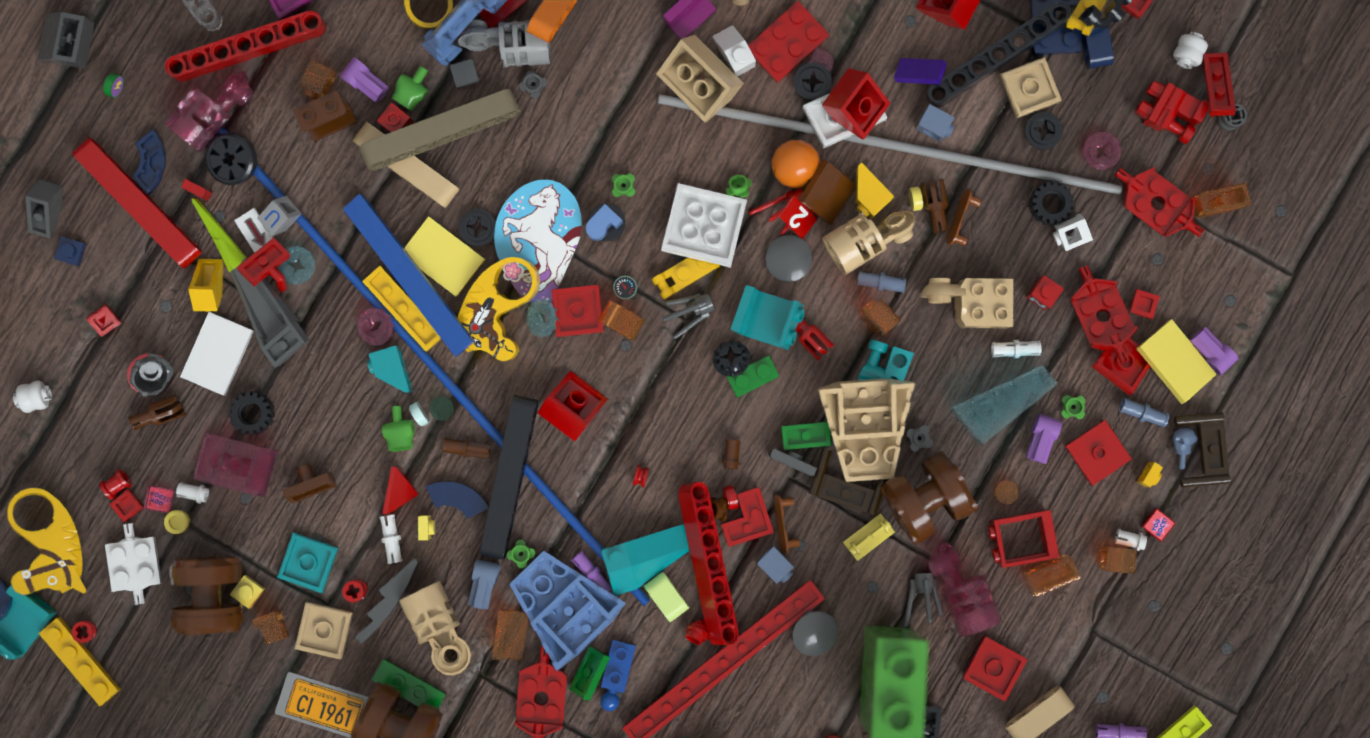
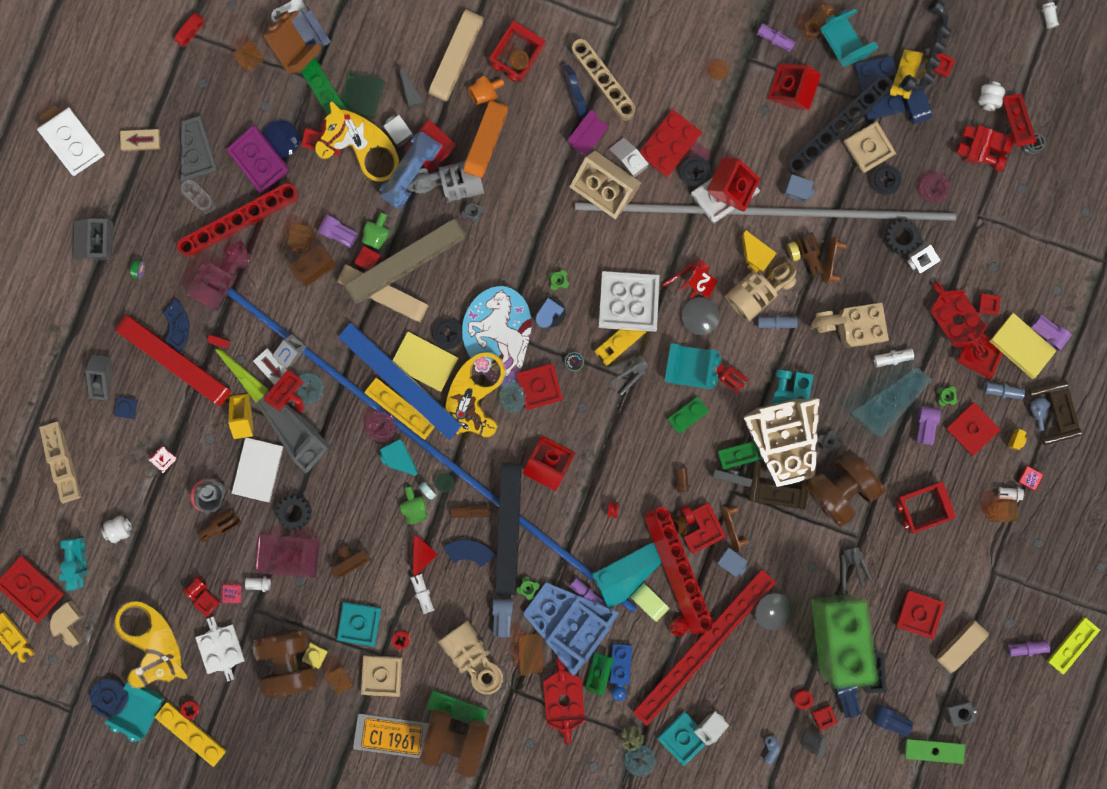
camera: 10 degrees left, 0 degrees up
(177, 522) = (249, 609): light yellow tile -> none
(219, 152) = (252, 317): black wheel -> none
(393, 592) = (431, 636): dark grey slope -> none
(426, 527) = (449, 580): light yellow plate -> none
(464, 74) = (416, 212): dark grey tile -> none
(621, 320) = (576, 388): clear orange beam -> none
(739, 186) = (651, 265): bright green plate -> none
(740, 363) = (676, 407): black gear -> none
(795, 163) = (693, 240): orange piece -> none
(827, 192) = (722, 258): reddish brown tile -> none
(869, 537) = (802, 527): light yellow hinge -> none
(879, 317) = (781, 351): clear orange brick -> none
(920, 71) = (779, 149): dark purple tile -> none
(967, 598) = (889, 562): clear pink cylinder -> none
(1006, 492) = (905, 473): clear orange plate -> none
(1044, 292) = (908, 309): red brick -> none
(1051, 575) = (952, 533): clear orange brick -> none
(1177, 206) = (1002, 226): red plate -> none
(1221, 200) = (1036, 211): clear orange brick -> none

